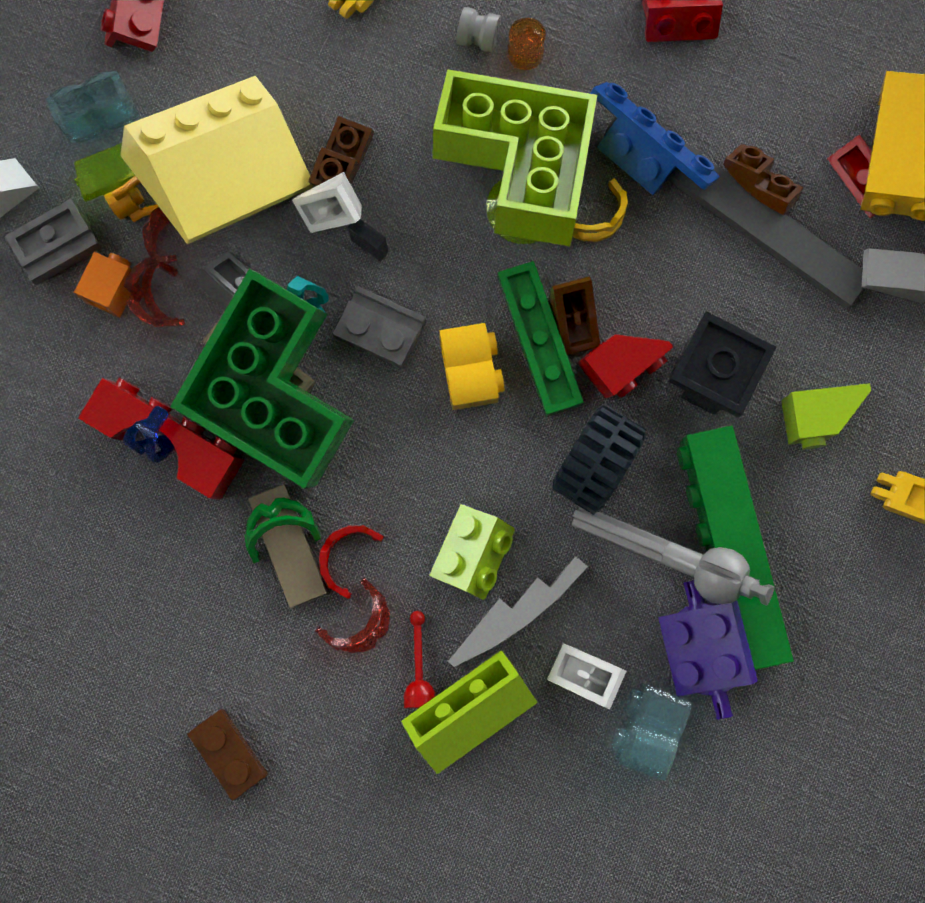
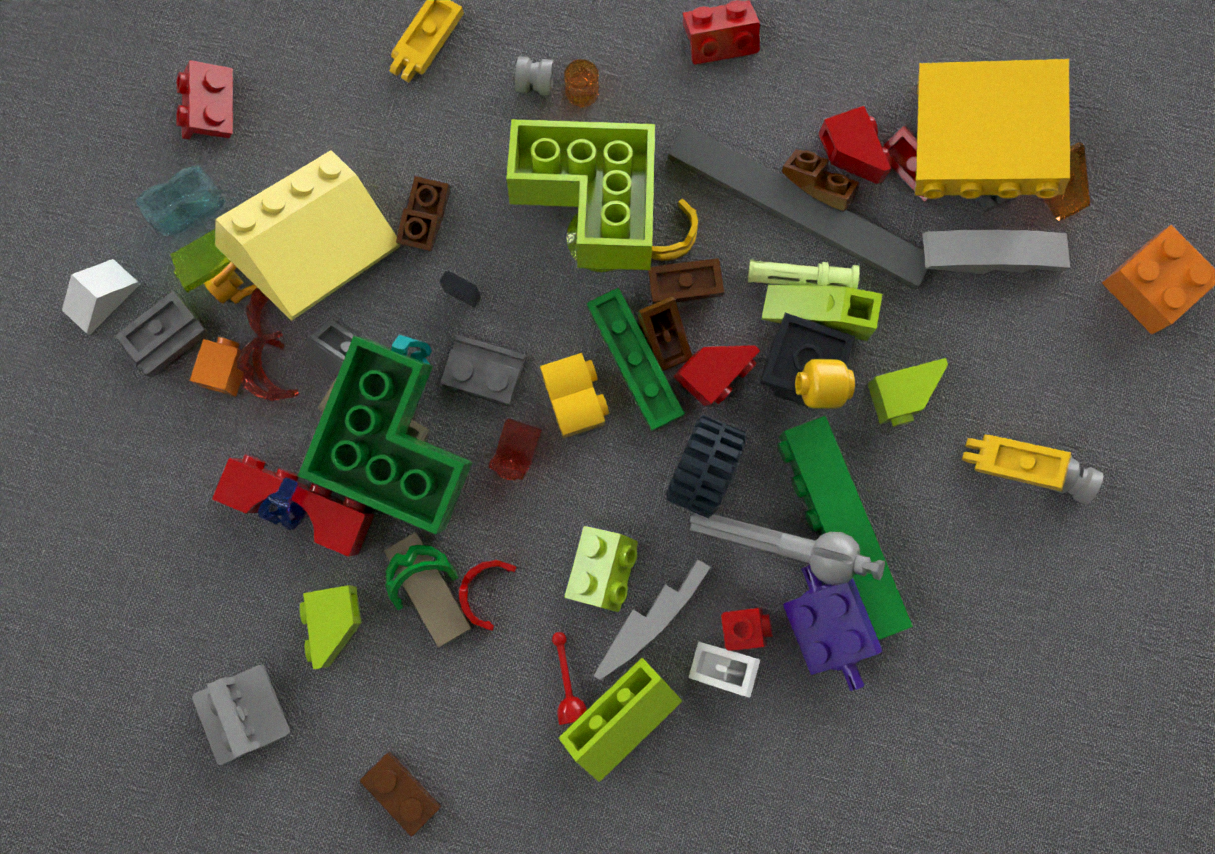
camera: 10 degrees left, 0 degrees up
(74, 645) = (240, 714): none -> light grey bracket
(182, 562) = (331, 621): none -> lime slope
(329, 204) = (419, 262): white slope -> none
(369, 633) = (517, 659): clear red helmet -> none
(400, 414) = (515, 450): none -> clear red bracket
(606, 264) = (686, 281): none -> reddish brown plate
(615, 636) = (746, 628): none -> red bracket
(645, 147) = (706, 165): blue bracket -> none
(651, 731) = (791, 711): clear light blue brick -> none
(738, 390) = (825, 384): none -> yellow head
(748, 281) = (803, 275): none -> yellowish green pin
(761, 313) = (832, 306): none -> lime slope
(804, 148) = (854, 145): none -> red slope

